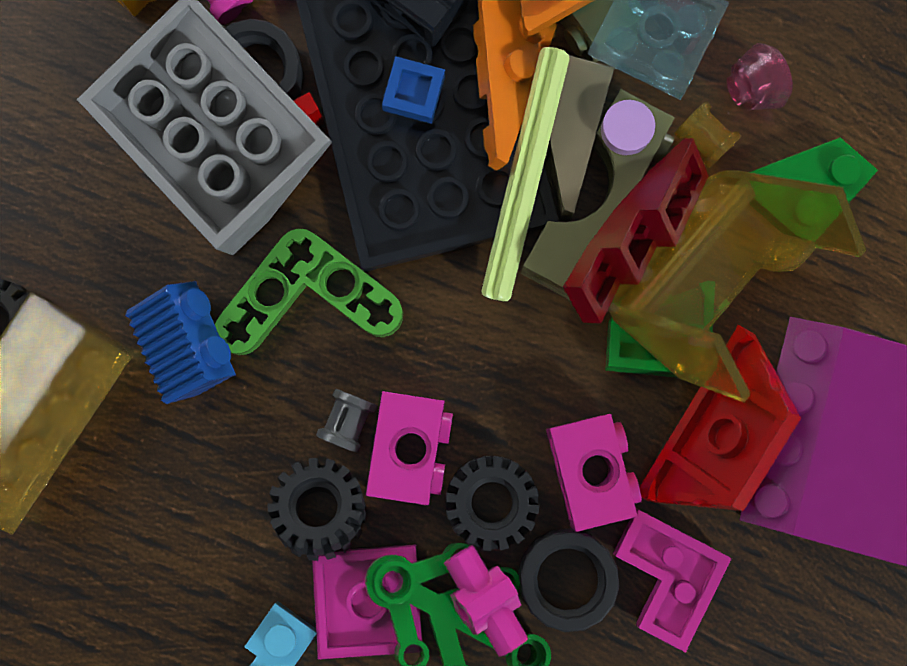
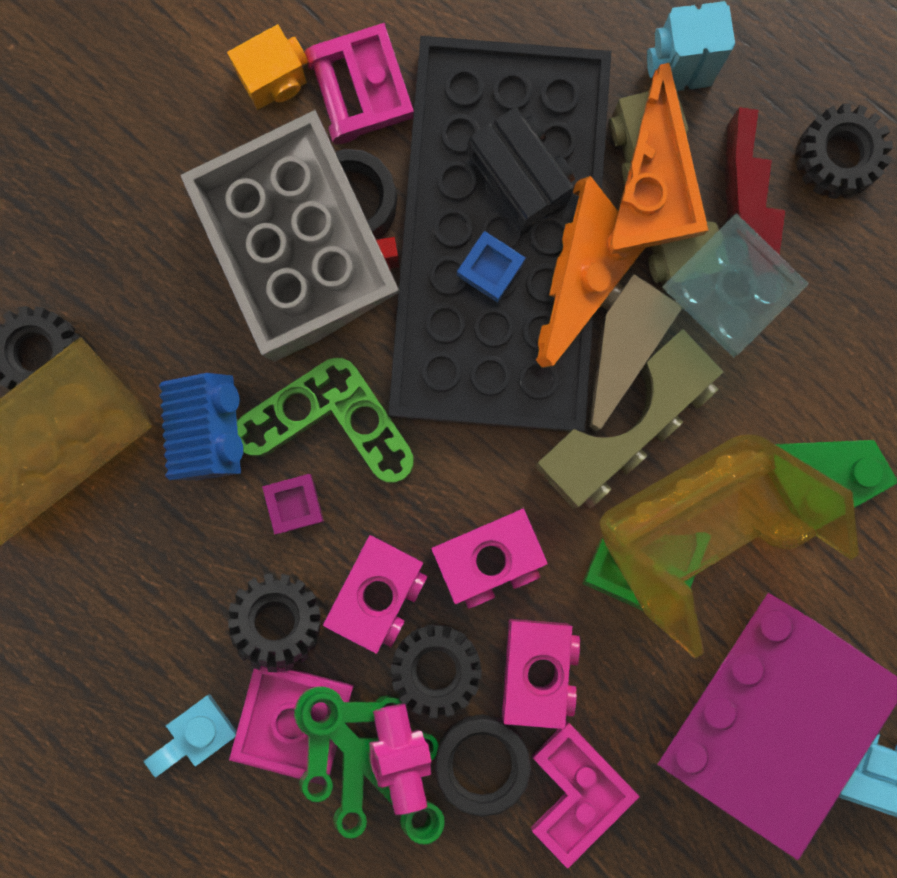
camera: 15 degrees right, 0 degrees up
(297, 387) = (293, 504): none -> magenta plate
(346, 420) = (327, 550): dark grey bush -> none
(523, 347) = (509, 534): none -> dark pink brick
(525, 173) = (567, 378): yellowish green axle -> none
(627, 127) = (676, 367): lavender tile -> none
(645, 219) = (661, 459): dark red slope -> none
(708, 133) = (750, 396): clear yellow bush -> none
(725, 443) = (664, 690): red wing -> none
(760, 79) = (817, 361): clear pink cone -> none

